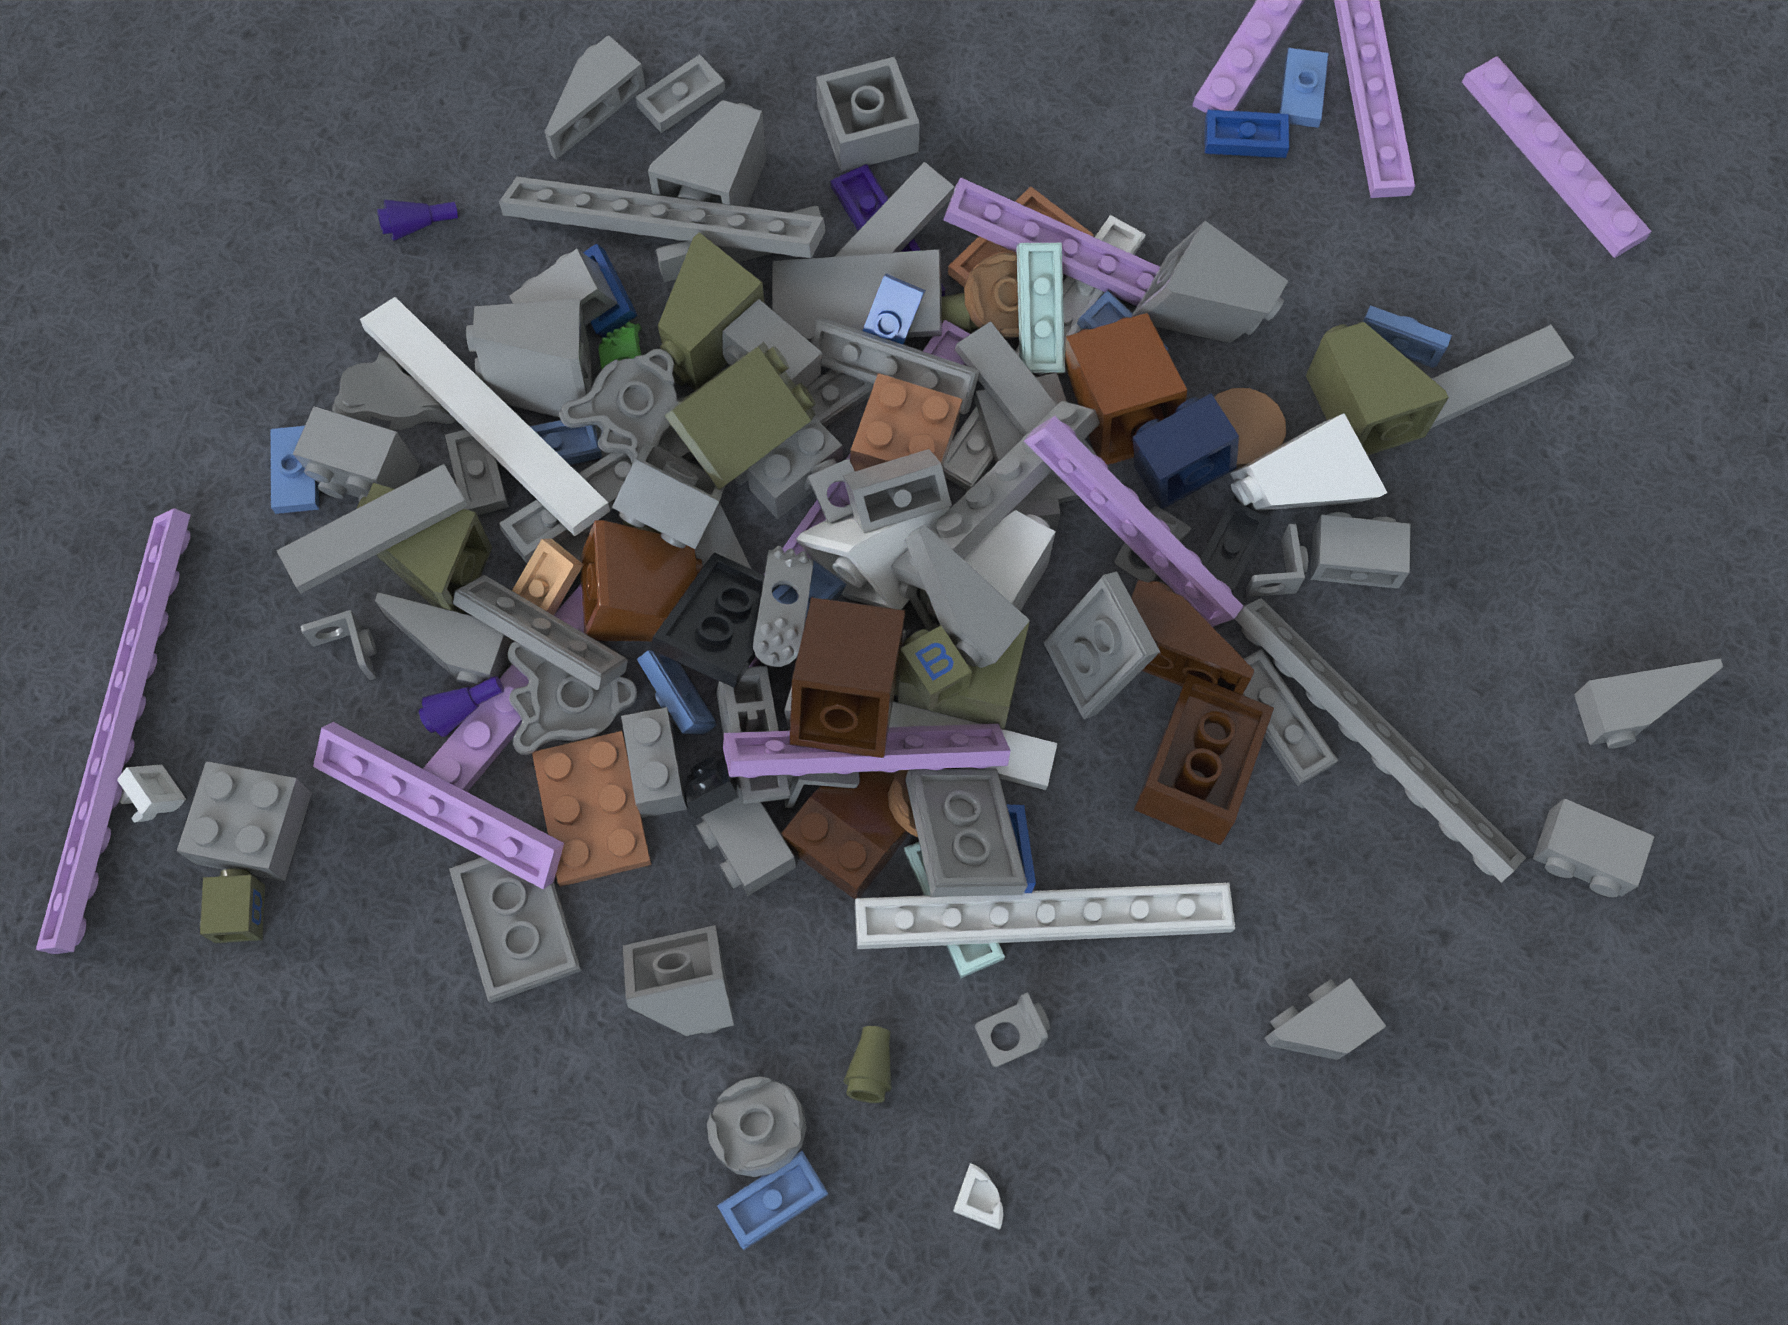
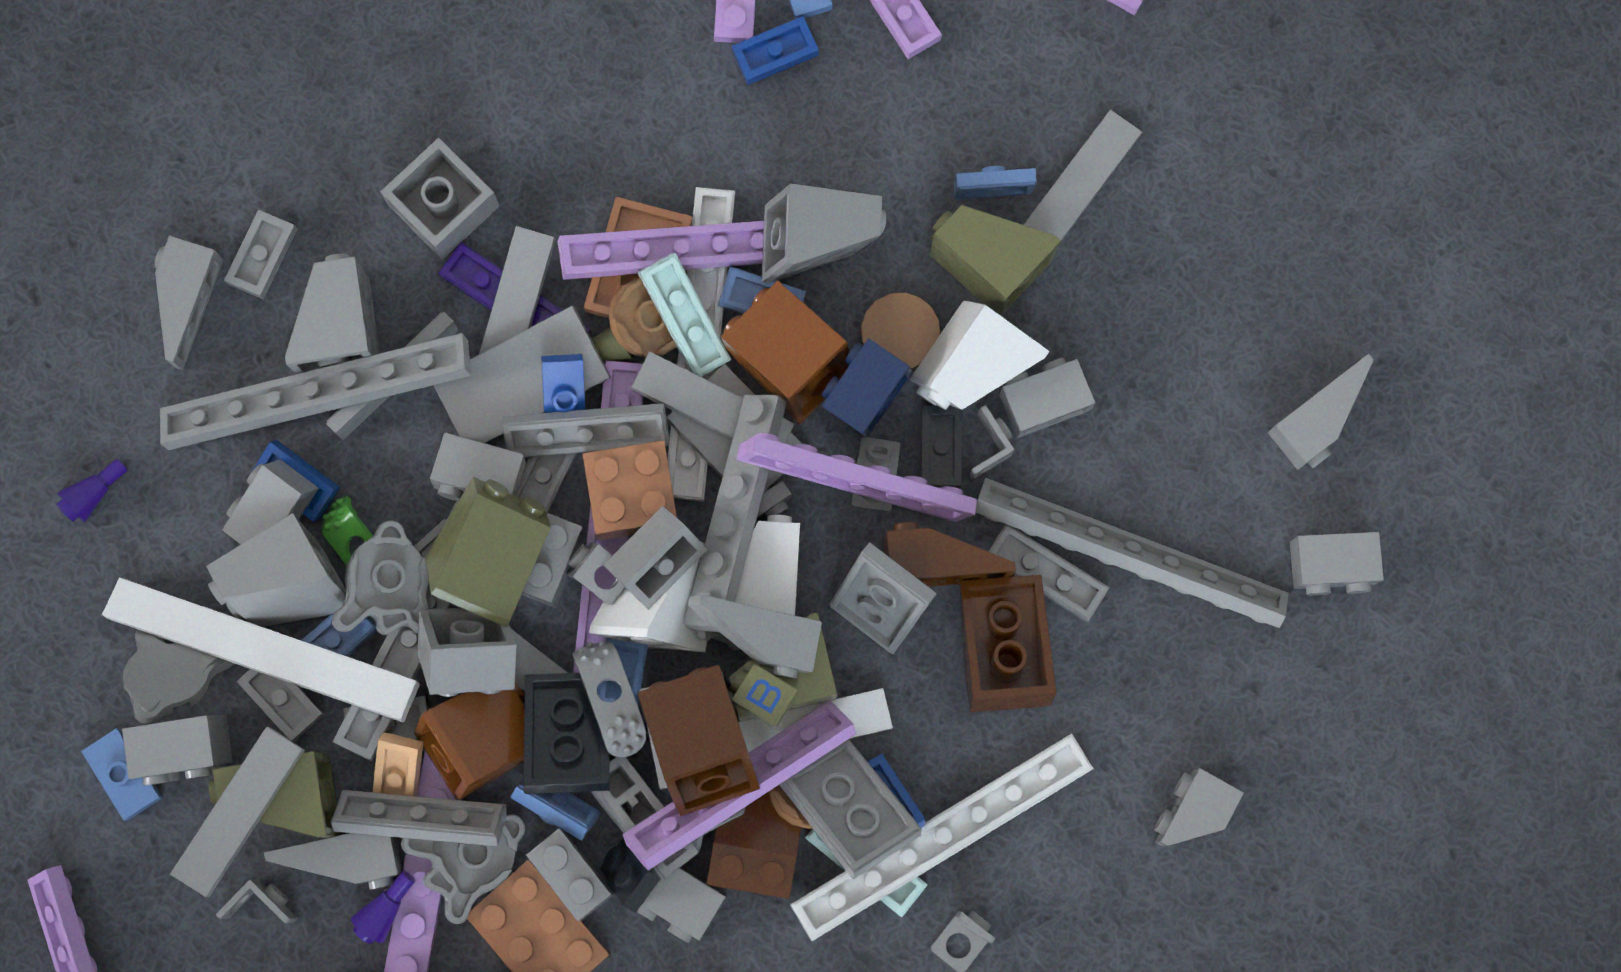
camera: 30 degrees left, 10 degrees up
(703, 302) = (400, 462): olive slope -> none

